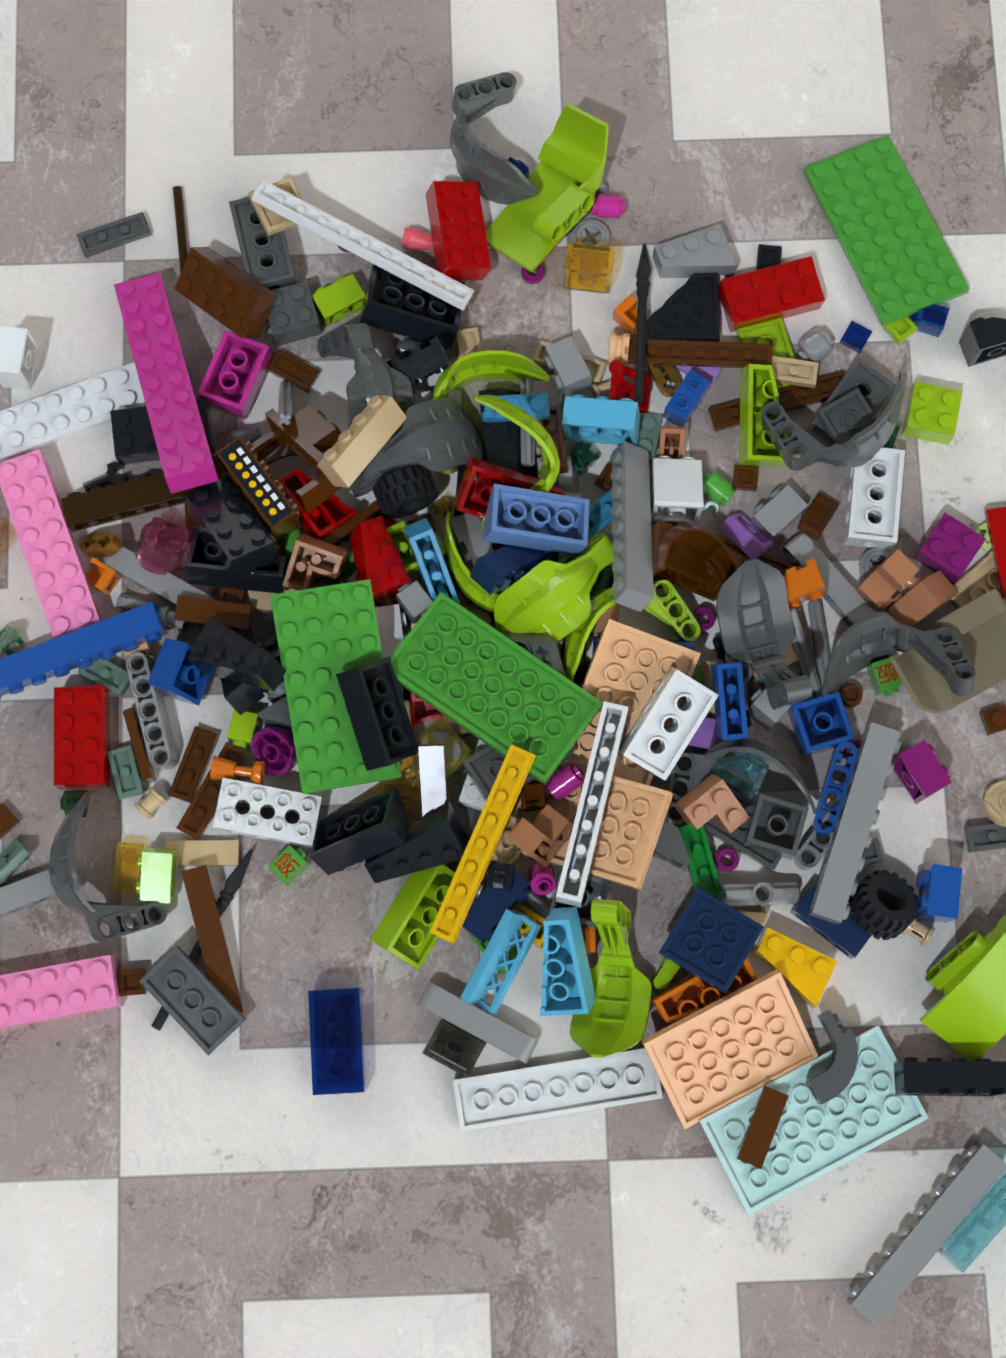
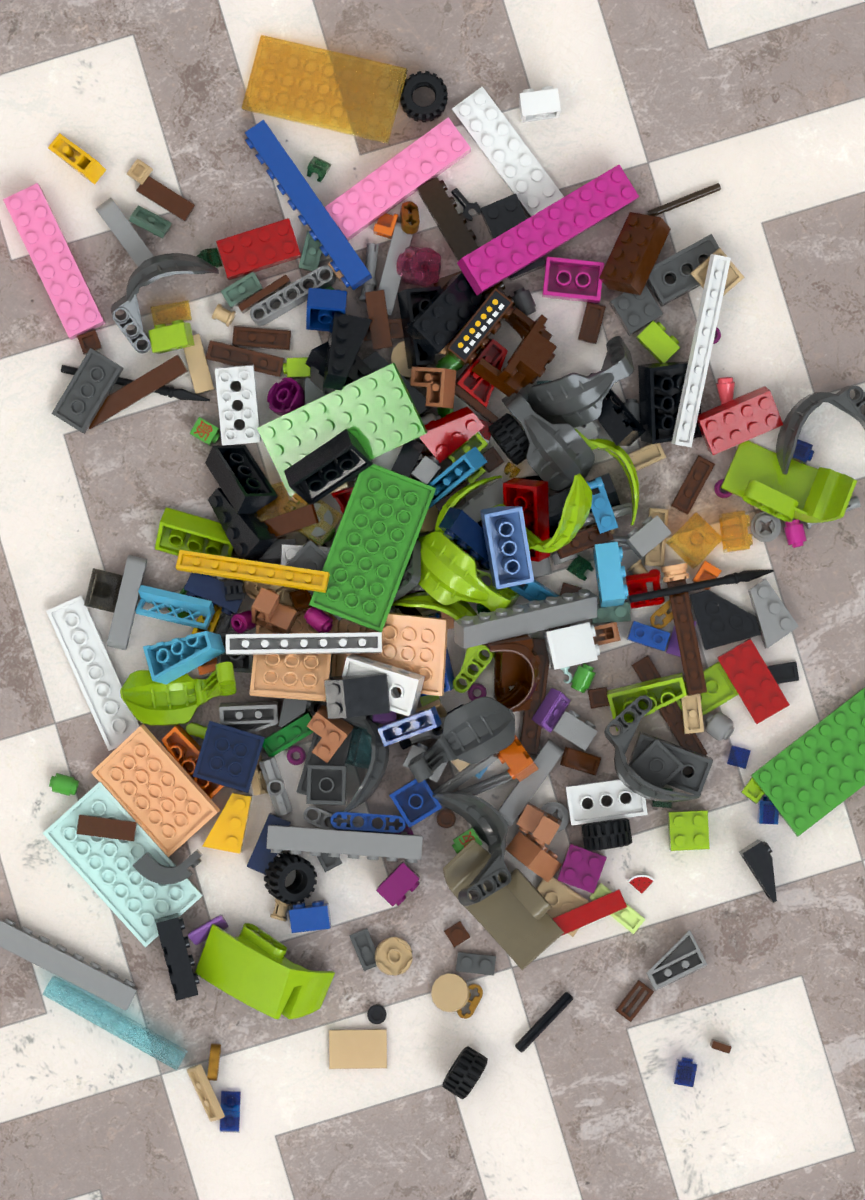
camera: 75 degrees right, 10 degrees up
(114, 234) = (666, 148): dark grey tile -> none
(228, 769) = (262, 364): orange piece -> none
(285, 403) = (556, 327): light grey axle -> none
(337, 1041) = (86, 503): clear blue brick -> none
(362, 441) = (531, 397): tan brick -> none
(393, 619) = (407, 458): none -> black tile
(518, 306) = (692, 485): none -> reddish brown tile
(586, 316) = (694, 540): none -> clear yellow brick
(662, 902) = (249, 715): none -> light grey wedge
(676, 753) = (356, 695): none -> black slope
(691, 1169) = (64, 784): none -> bright green brick
(919, 504) = (606, 834): none -> black tyre
(922, 1034) = (201, 933): none -> medium lavender slope
(981, 485) = (641, 882): none -> red tile

